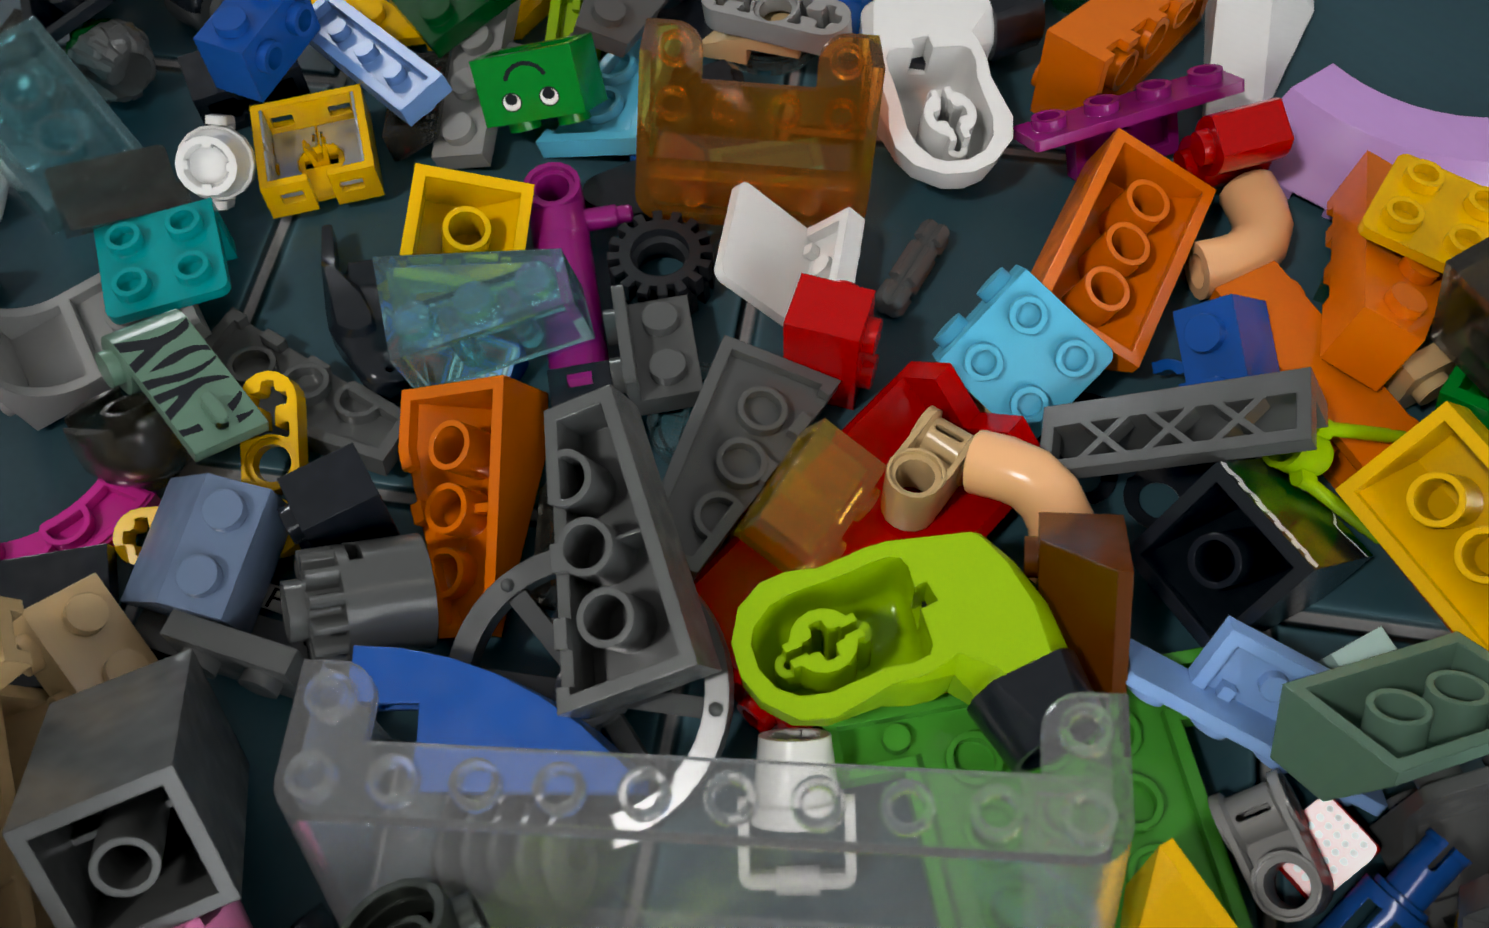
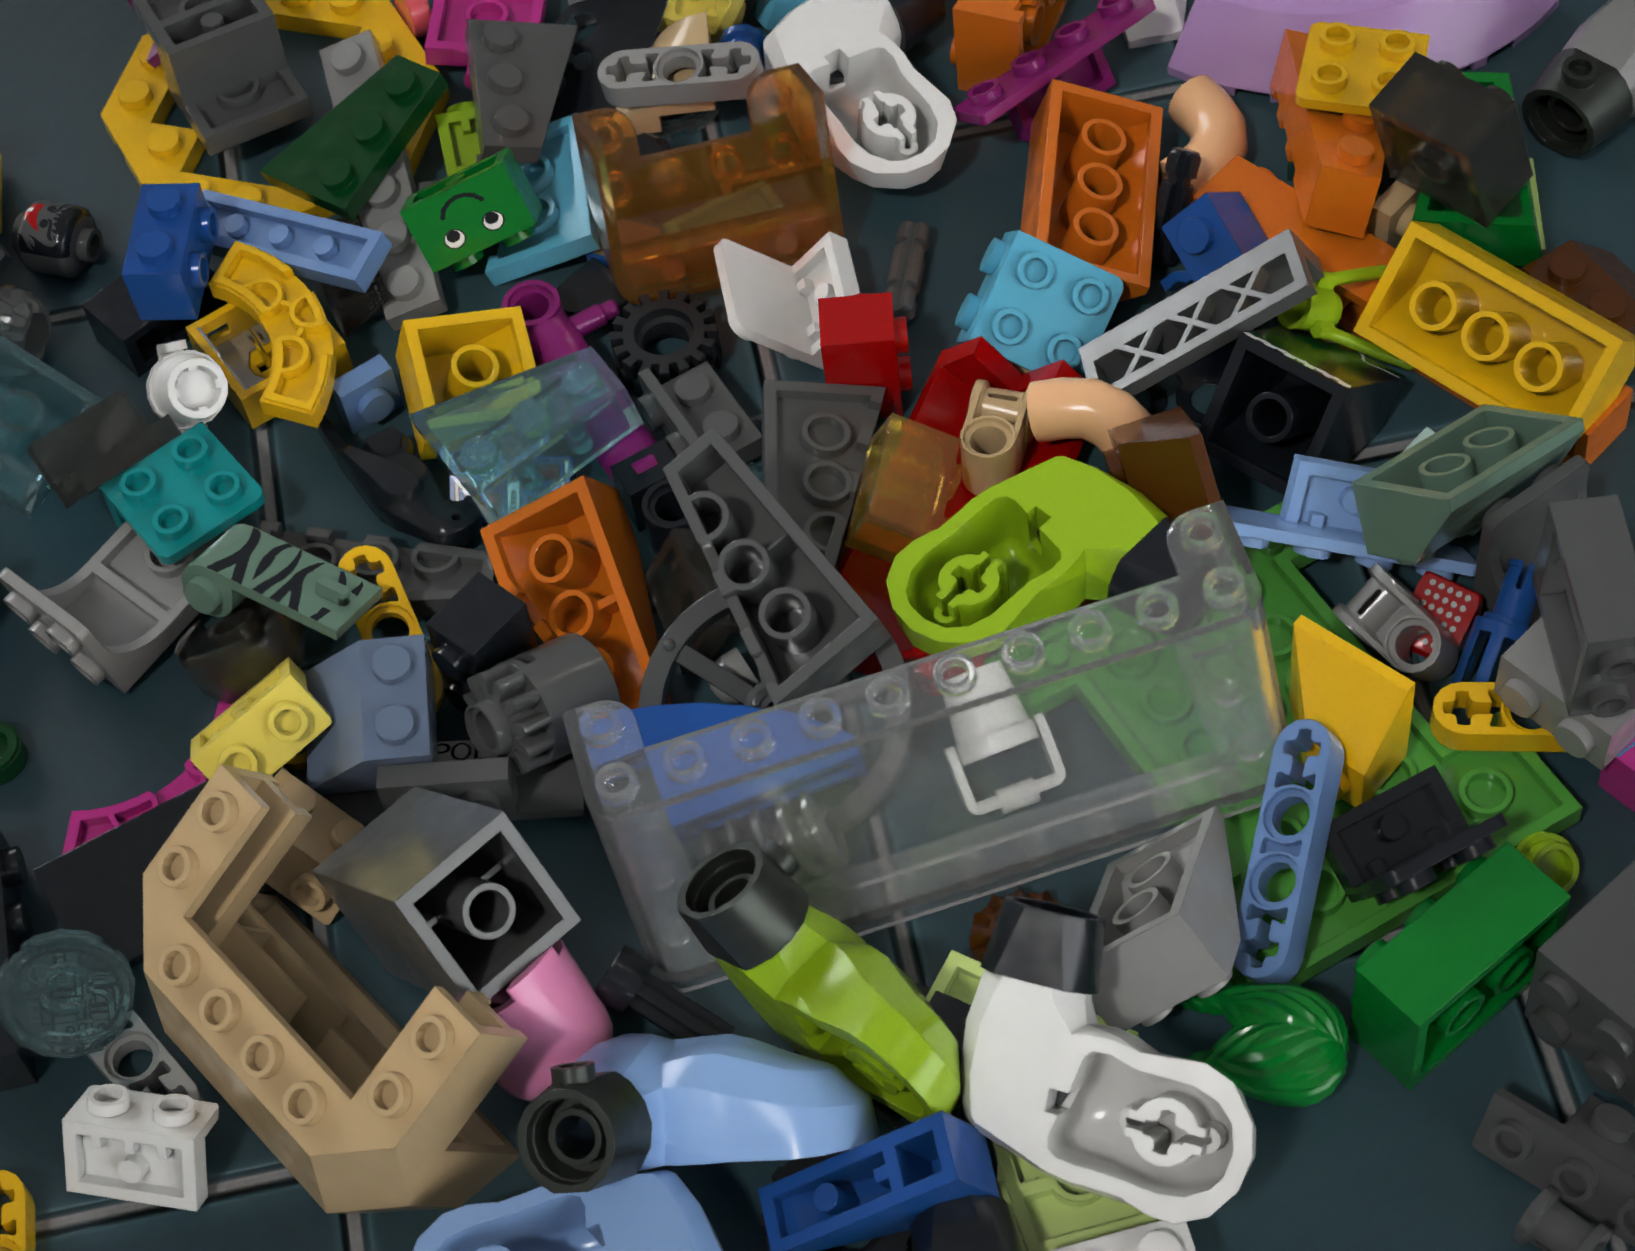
camera: 15 degrees left, 5 degrees down
(91, 528) = (263, 725): none -> light yellow bracket
(335, 146) = (294, 322): none -> yellow tile
(375, 219) = (366, 394): none -> medium blue plate
(1196, 283) = (1173, 197): none -> black axle
(1236, 142) = (1164, 59): red brick -> none

